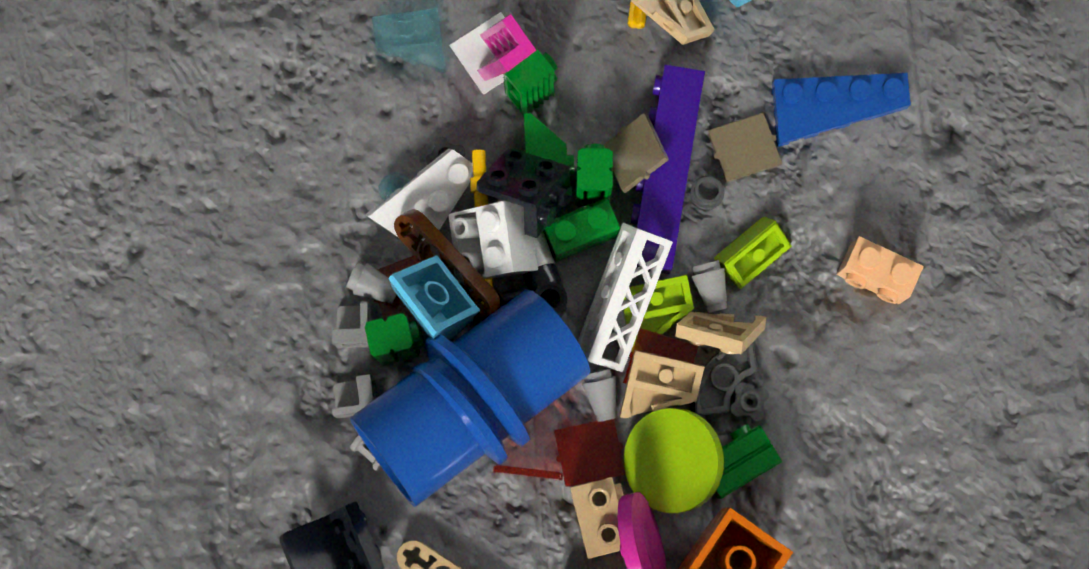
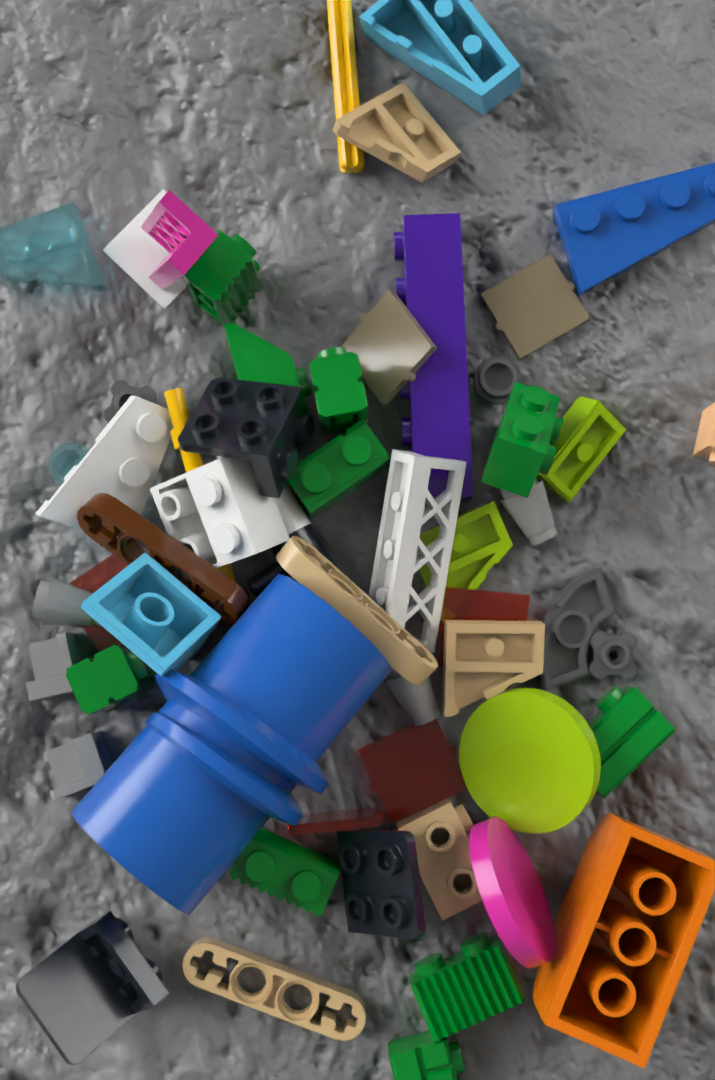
camera: 10 degrees left, 5 degrees up
(484, 501) = (287, 871): none -> green brick
(551, 519) = (381, 882): none -> black bracket
(598, 357) = (326, 581): none -> tan beam
(716, 235) = (523, 440): none -> green brick
(719, 331) = (555, 569): tan wing -> none

